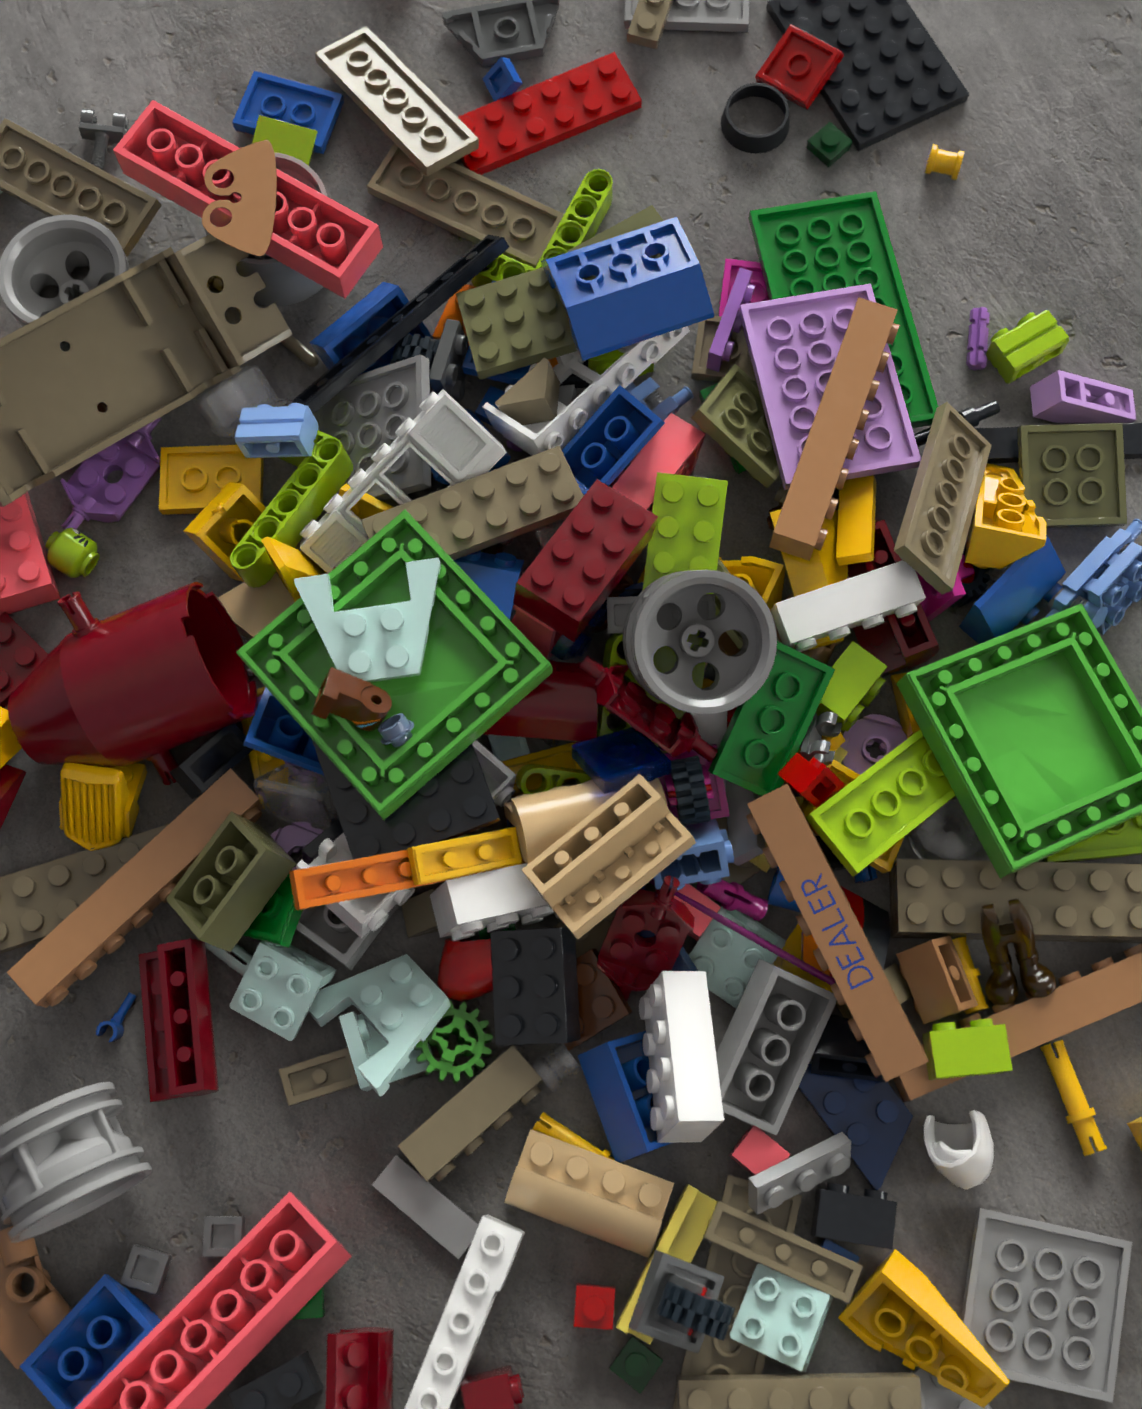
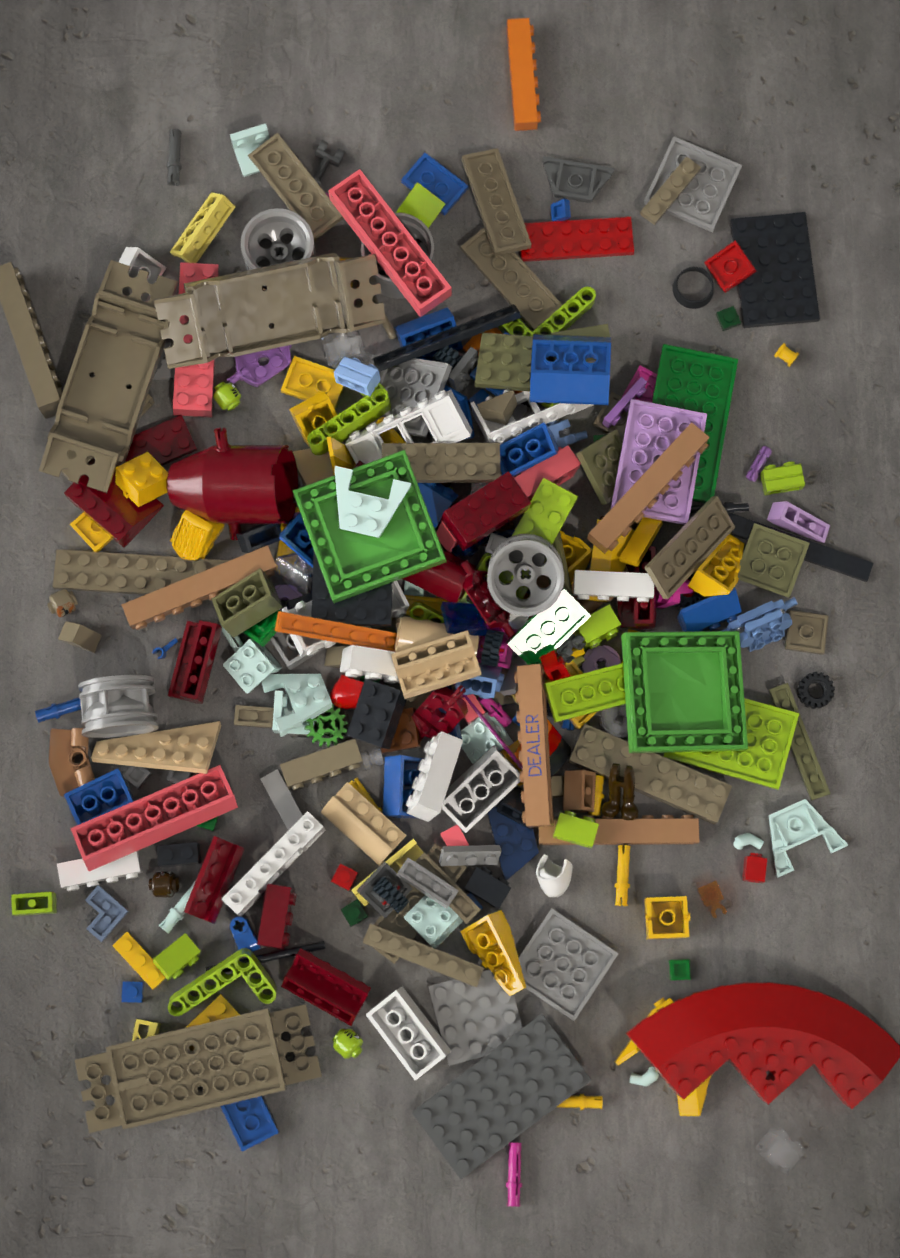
camera: 20 degrees right, 5 degrees up
(193, 1198) = (172, 749): none -> tan wing
(255, 213) = (396, 238): medium nougat piece -> none
(352, 700) = (340, 538): reddish brown leg -> none
(396, 730) = (356, 561): sand blue plate -> none
(464, 856) = (366, 636): yellow tile -> none
(750, 1258) = (427, 883): none -> light grey plate

